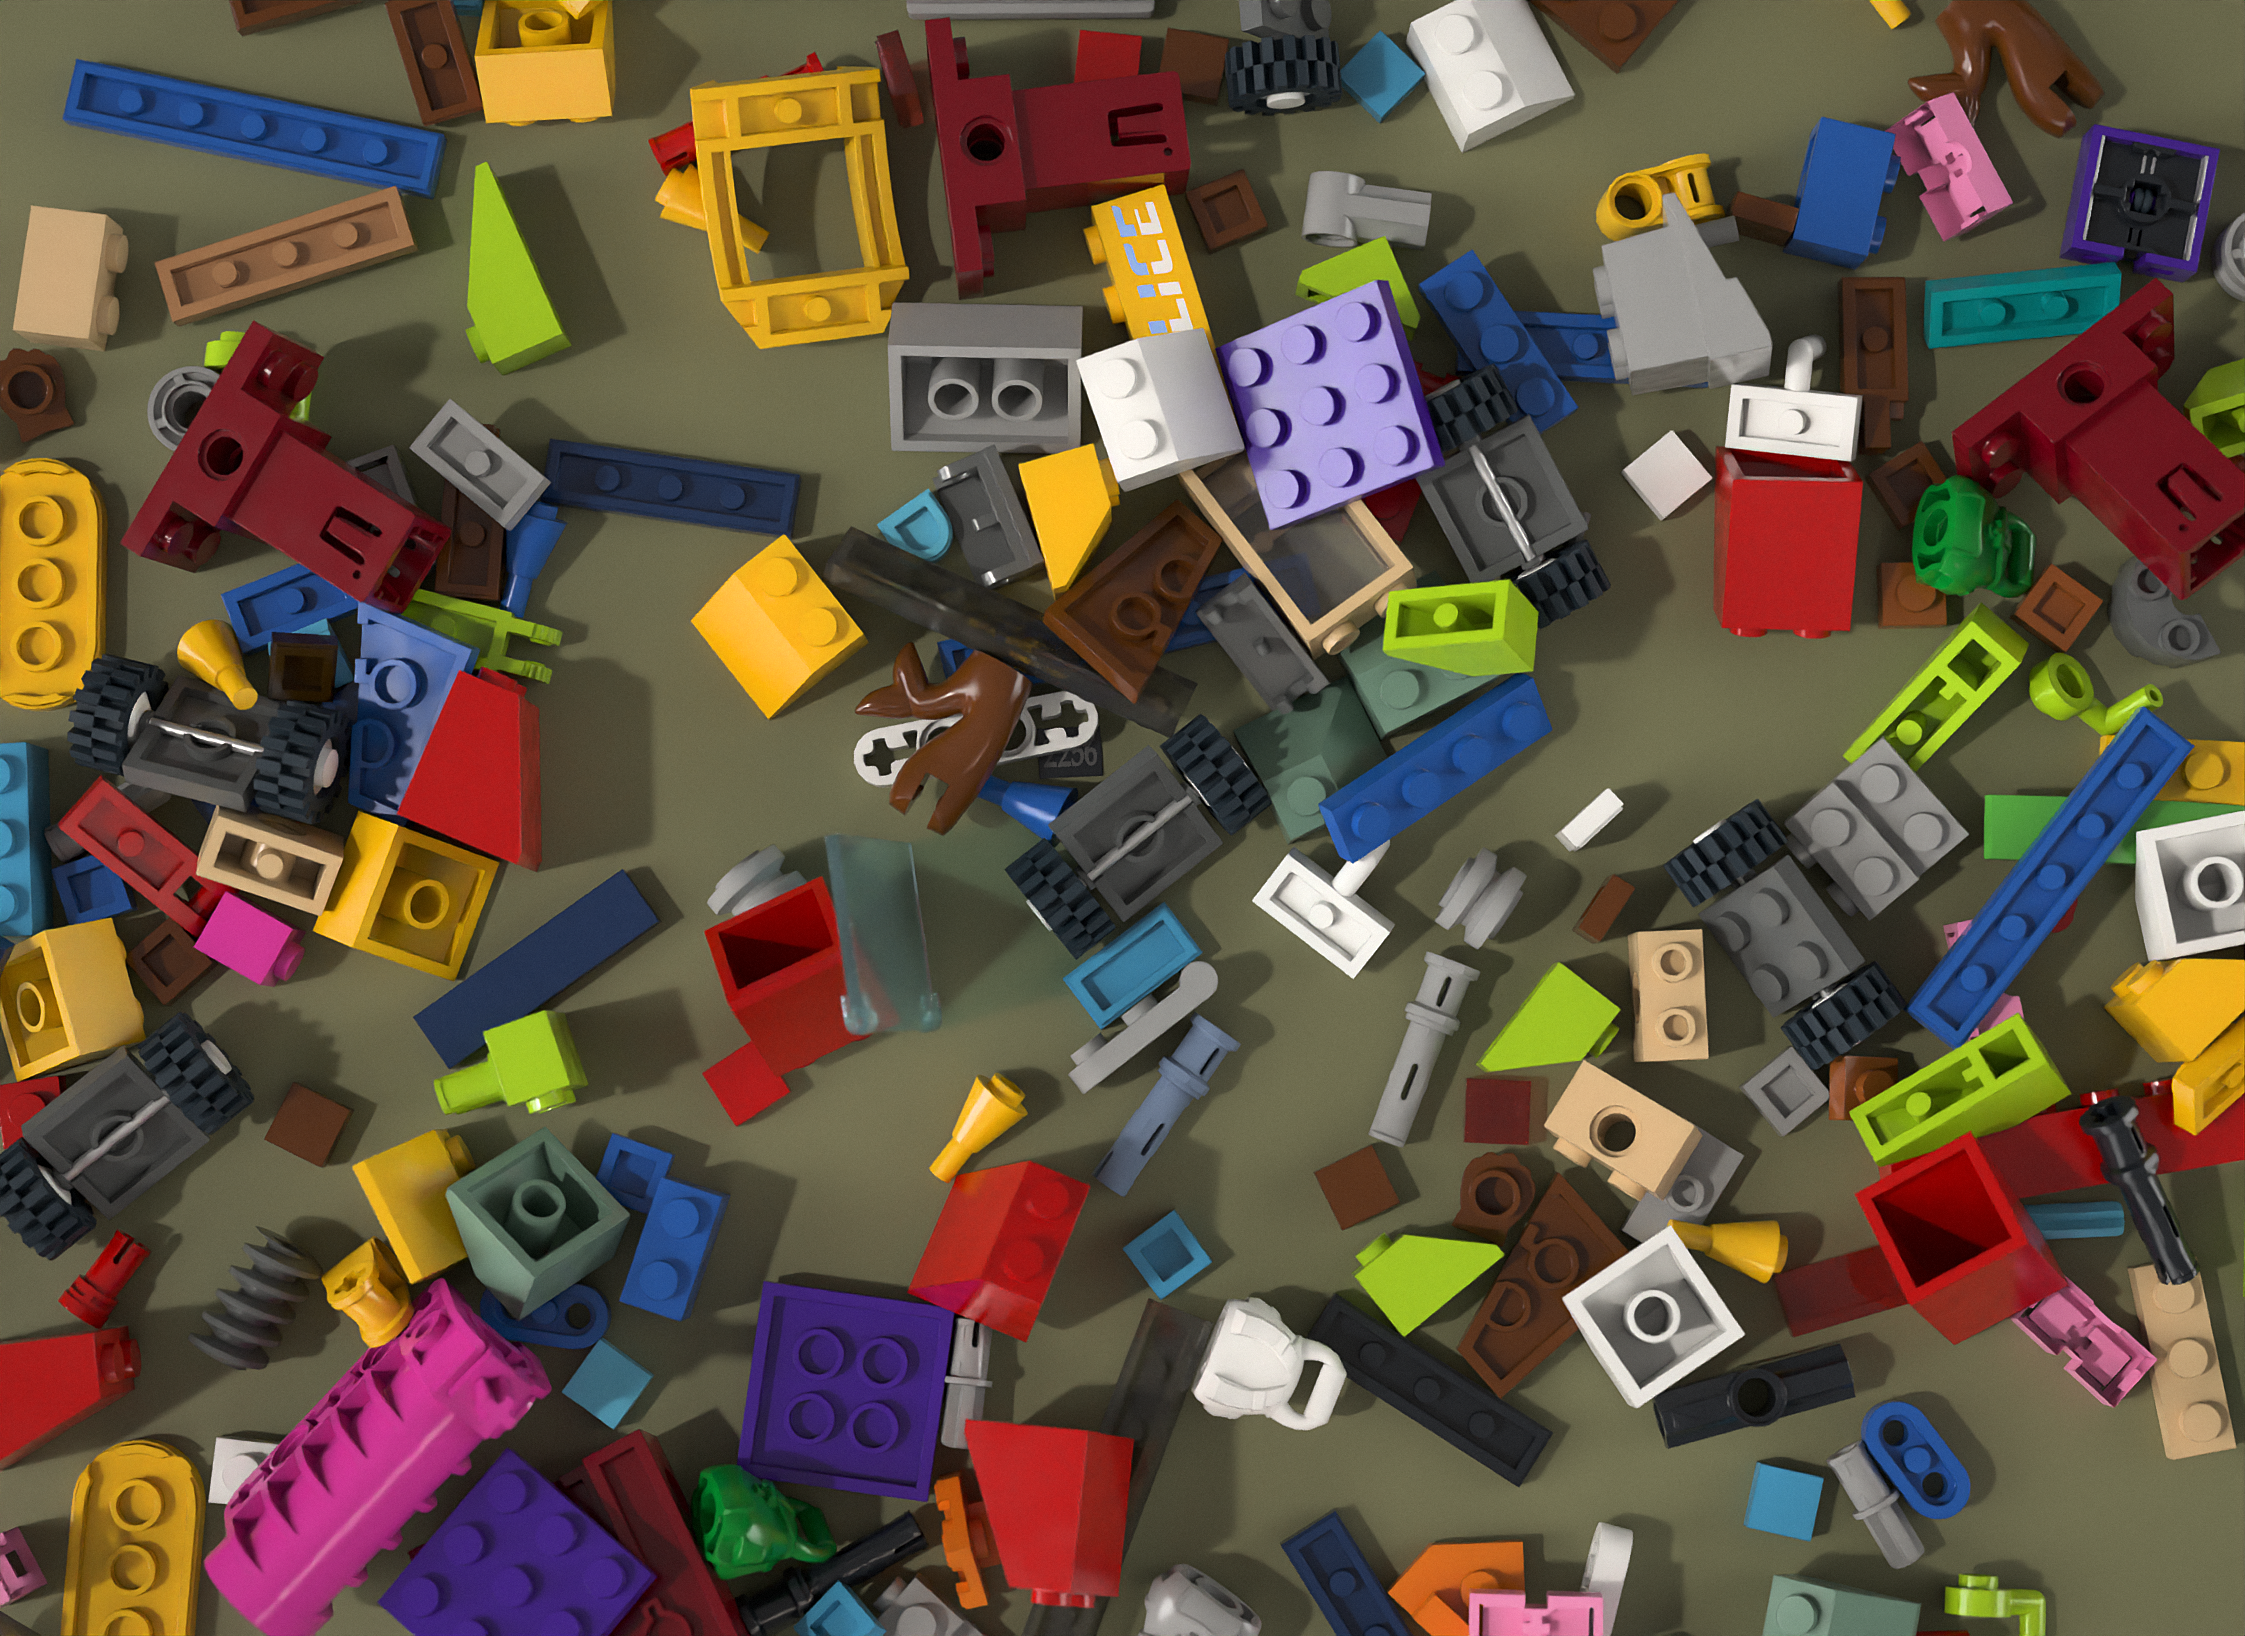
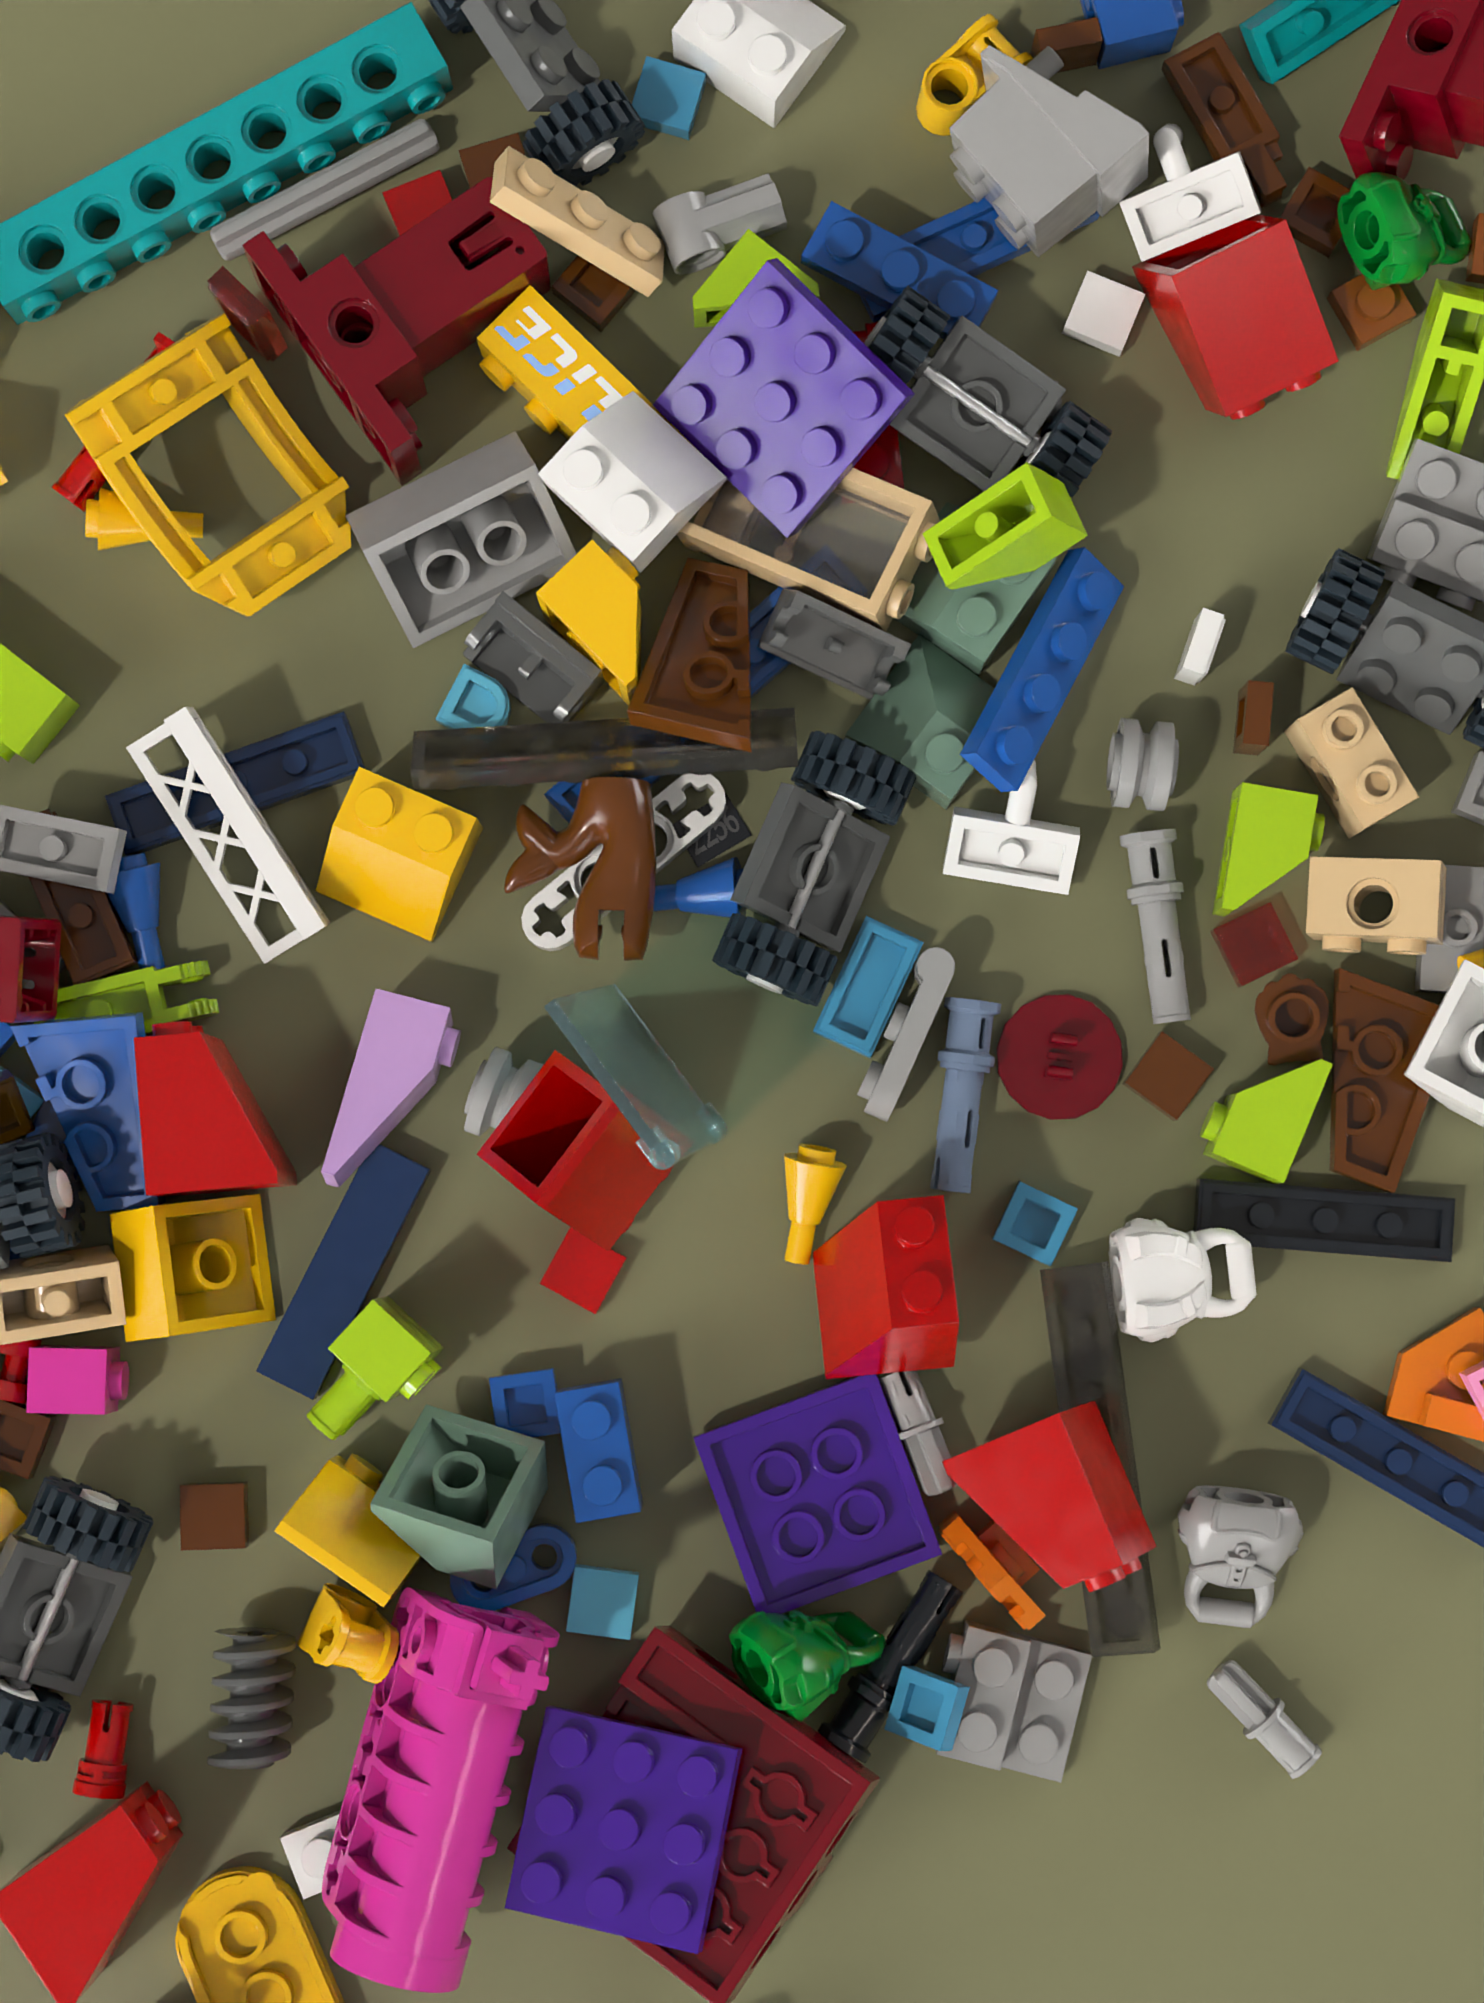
camera: 30 degrees left, 0 degrees up
(660, 531) = (247, 824): none -> white fence
(669, 818) = (391, 1073): none -> lavender slope
(1236, 150) = (577, 221): none -> tan plate
(1269, 1118) = (1059, 1057): none -> dark red piece

